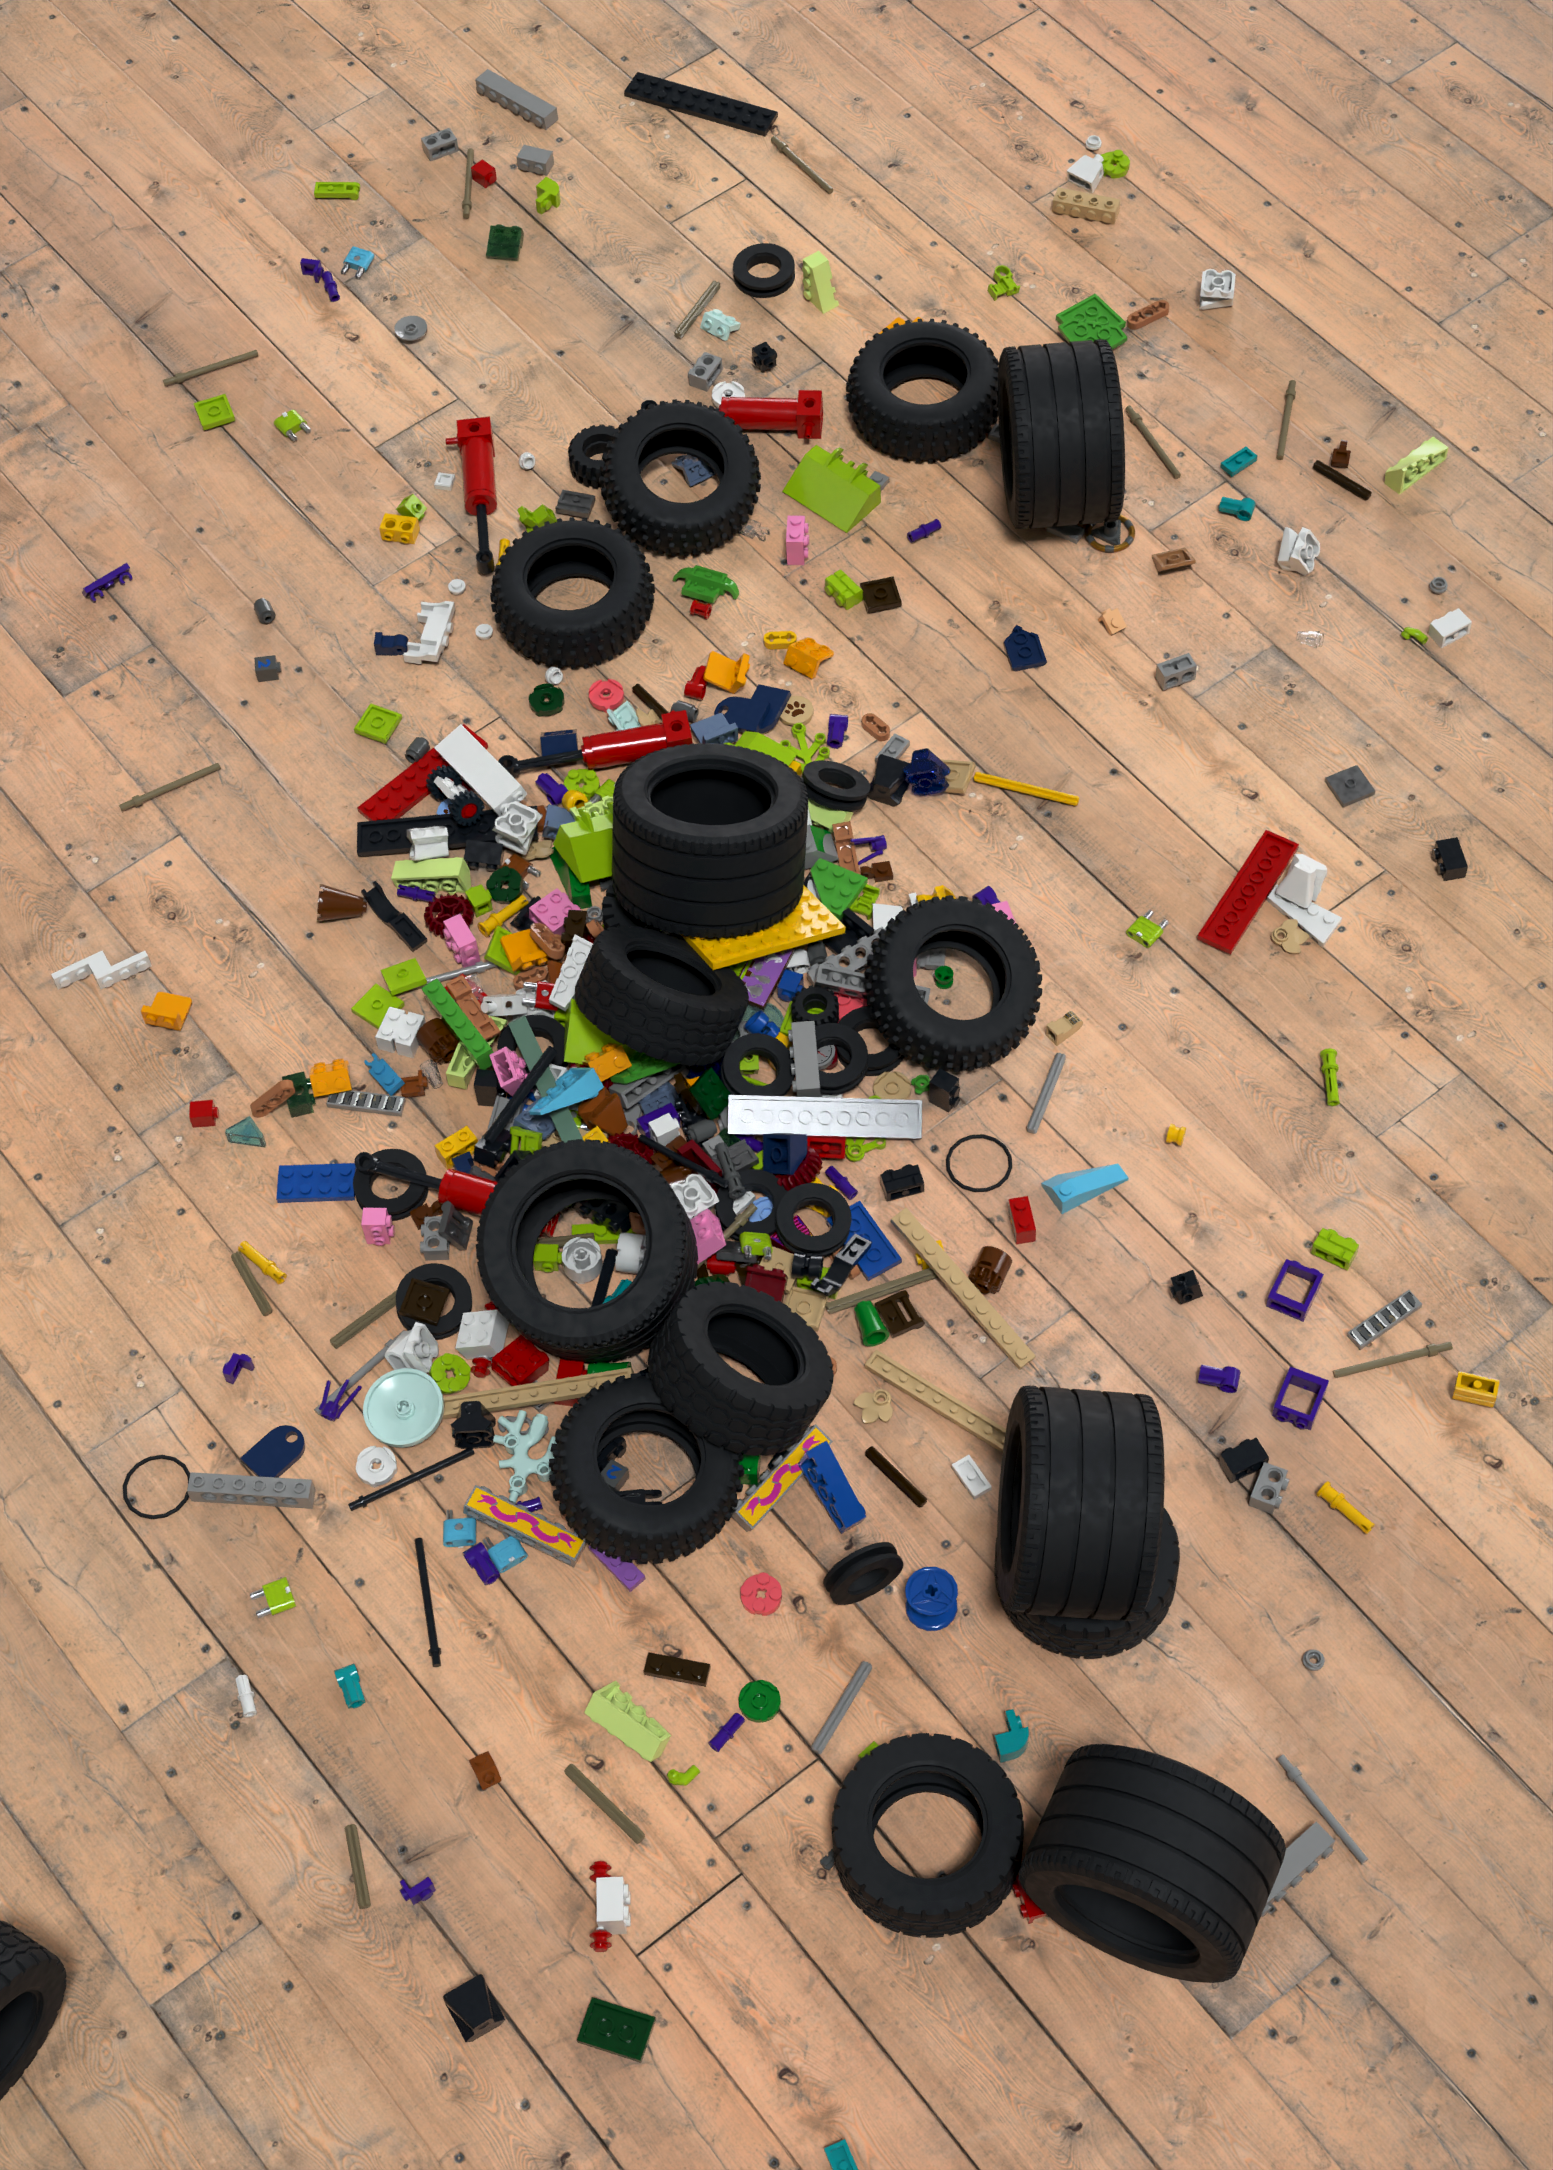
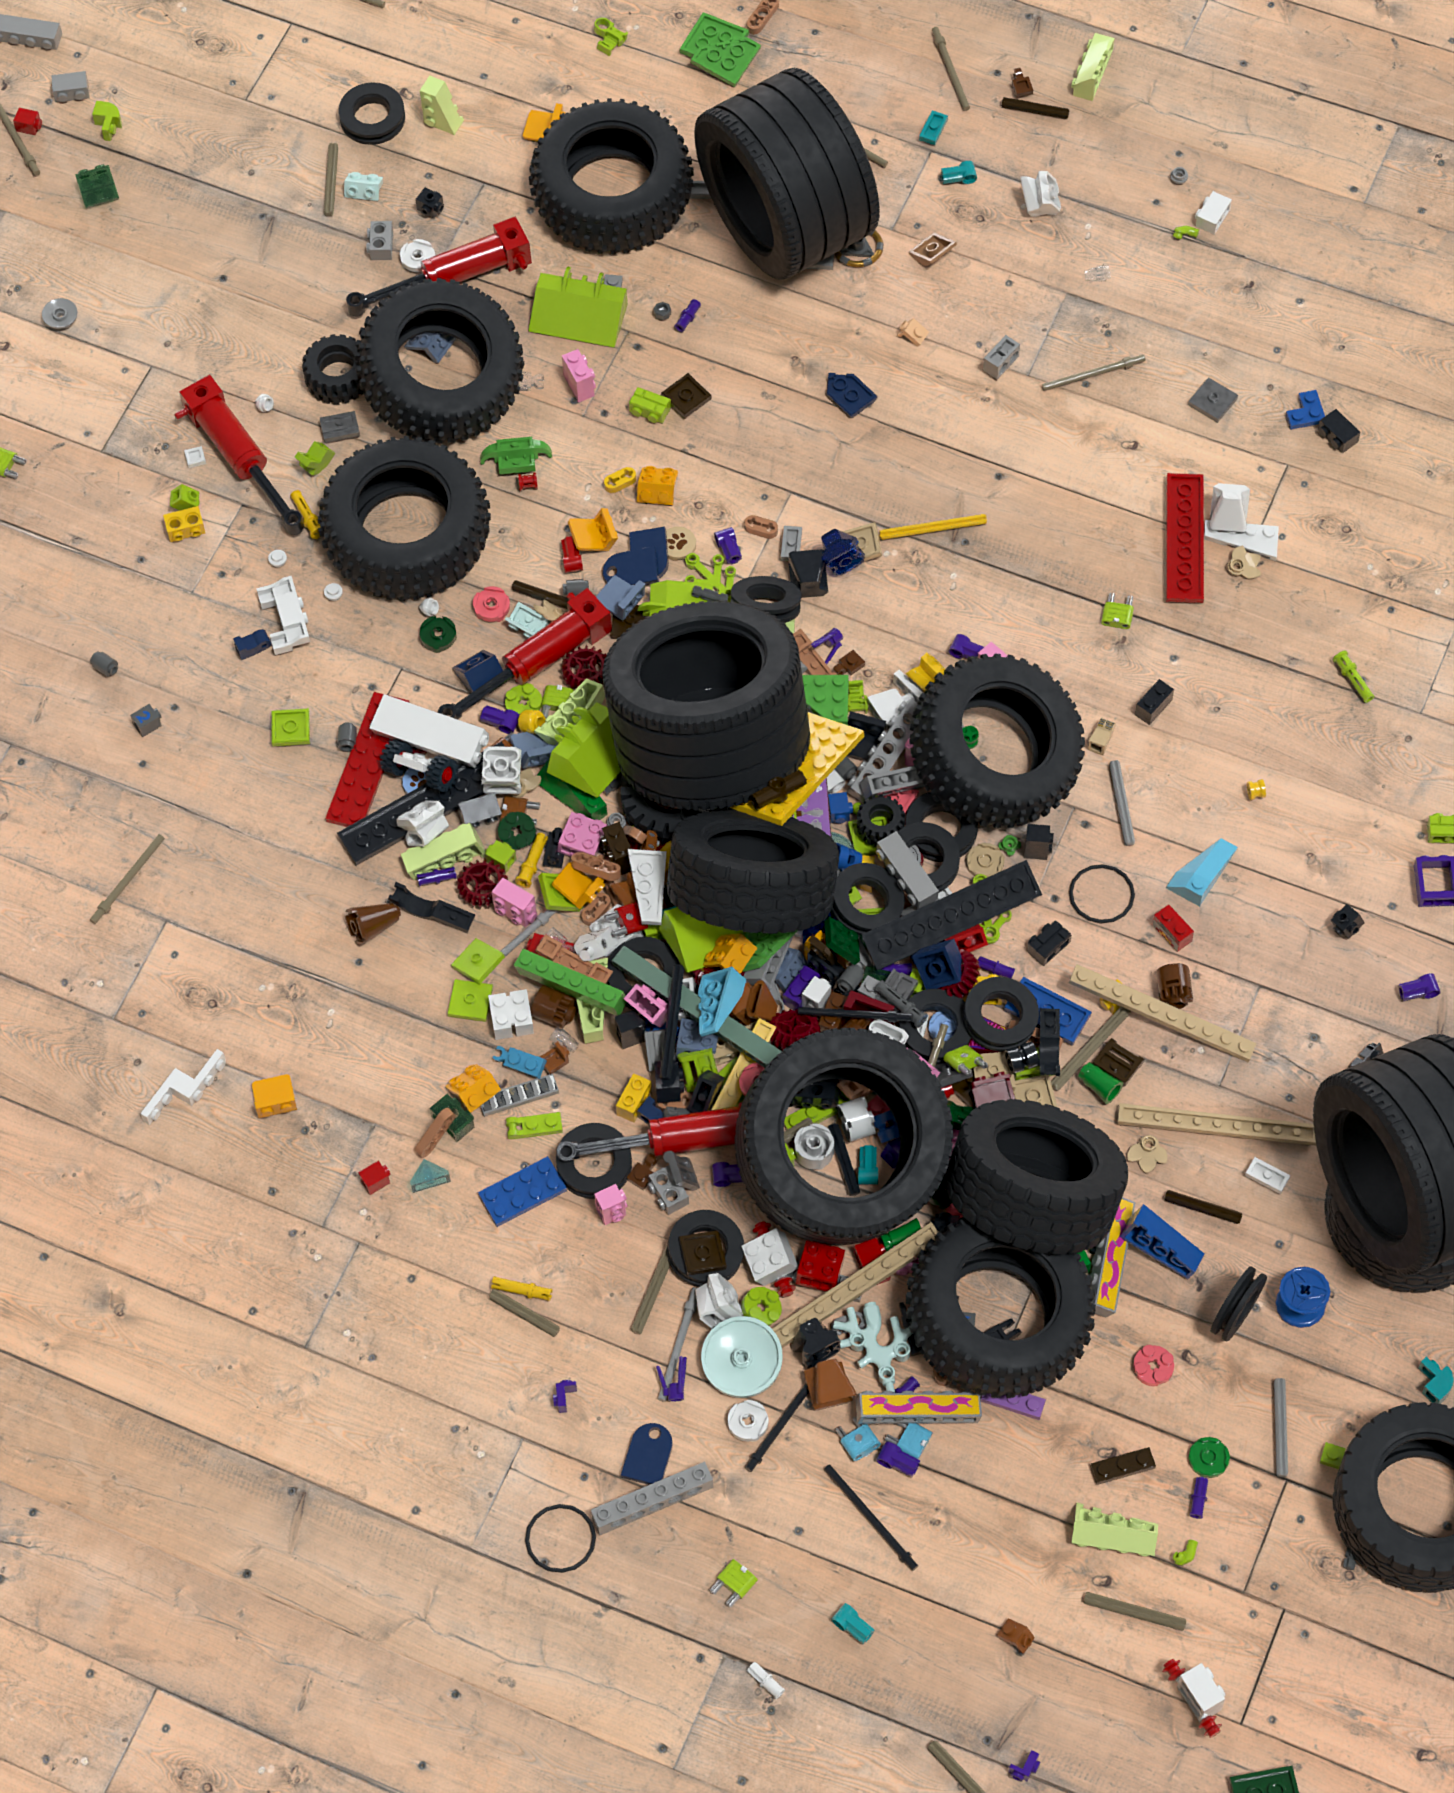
camera: 30 degrees left, 5 degrees up
(362, 1133) = (534, 1125): none -> lime plate
(461, 1467) = (828, 1385): none -> dark orange piece
(726, 937) = (778, 789): none -> dark brown piece
(787, 759) = (708, 594): none -> dark grey axle
(905, 518) = (662, 310): none -> dark grey tile
(1129, 1018) = (1154, 702): none -> black brick
(1289, 722) = (1125, 363): none -> dark tan bar
(1430, 834) = (1309, 414): none -> blue plate

